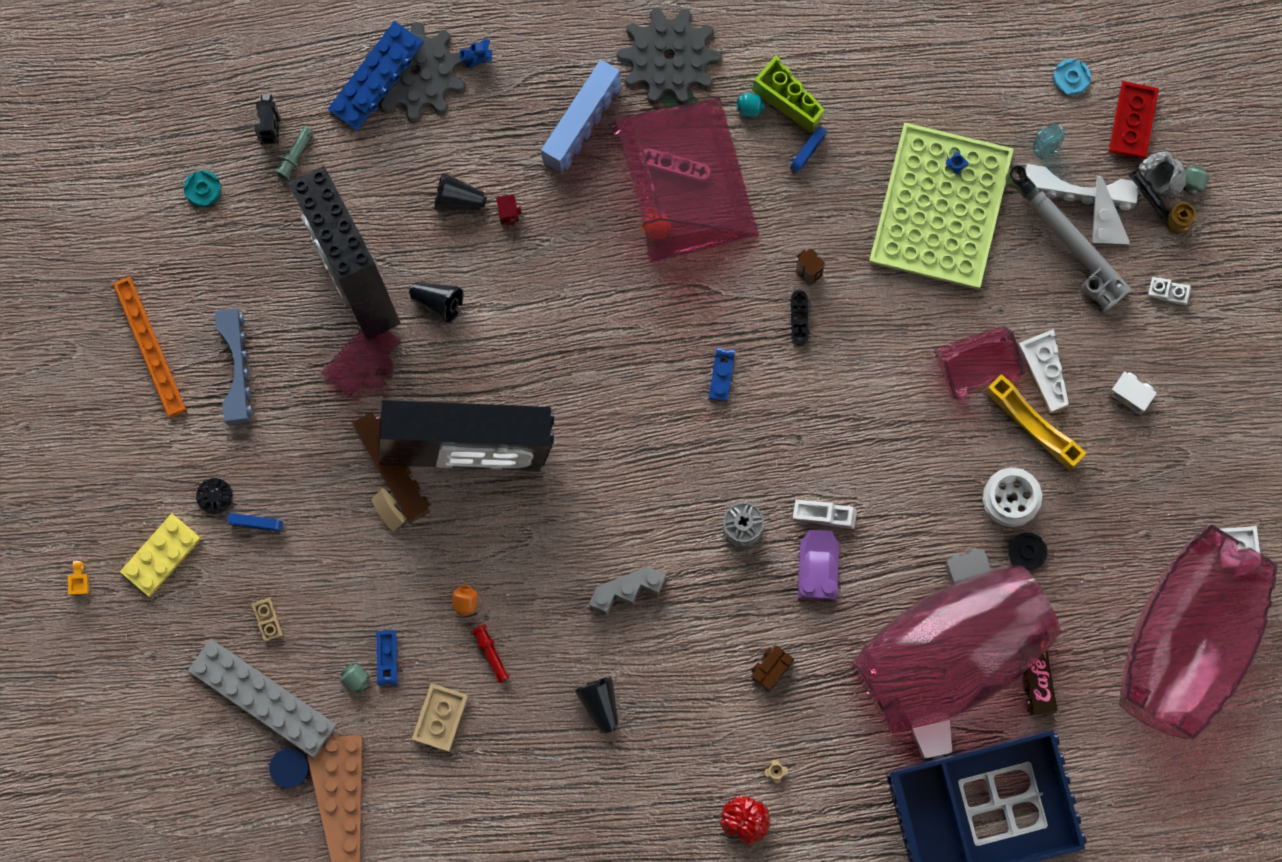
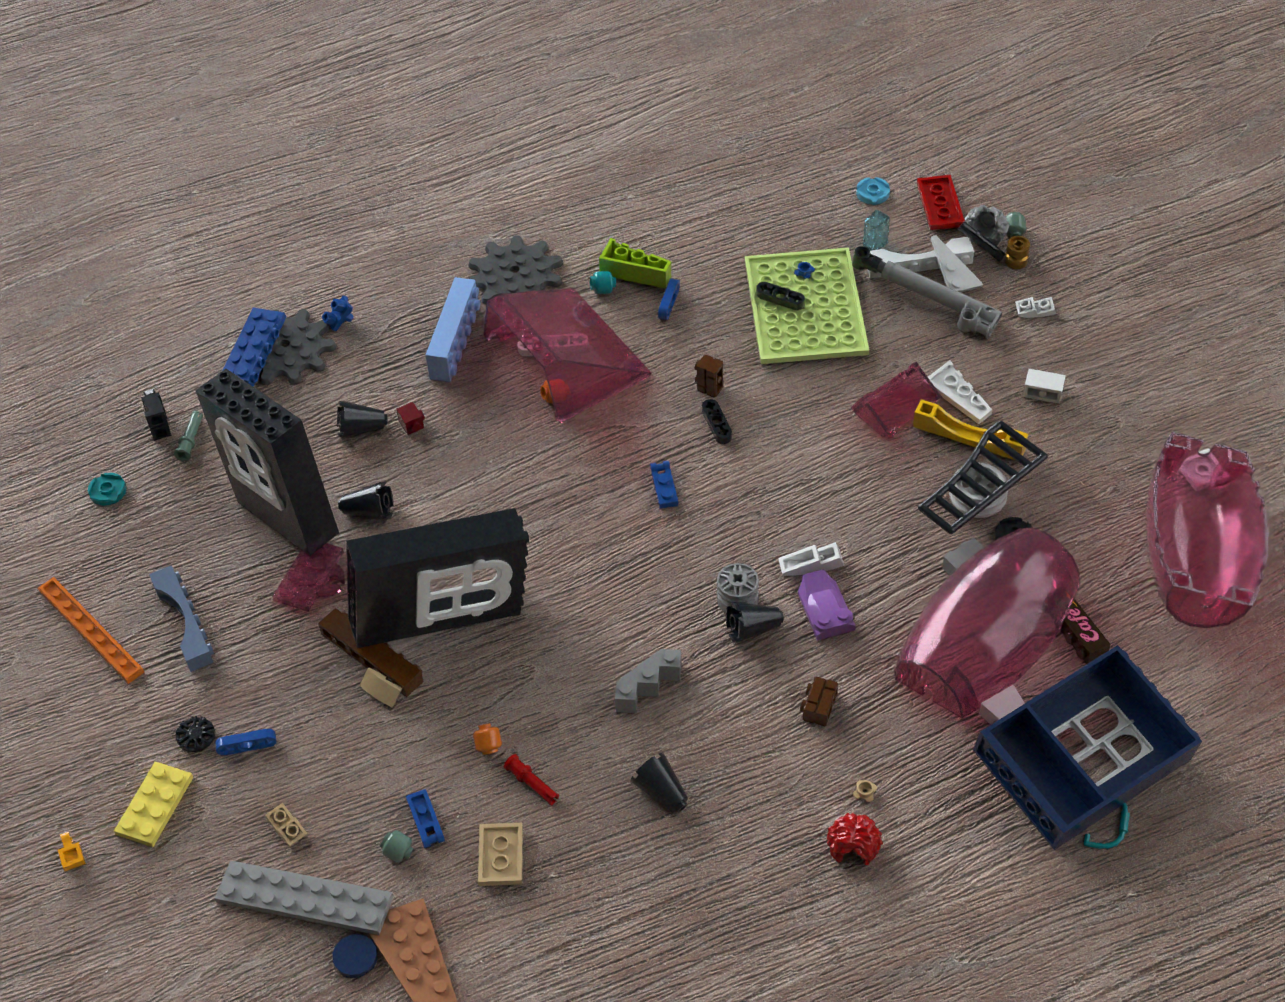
camera: 20 degrees left, 25 degrees down
(744, 562) = (751, 620): none -> black cone
(918, 197) = (795, 302): none -> black beam
(1014, 472) = (989, 497): none -> black bar

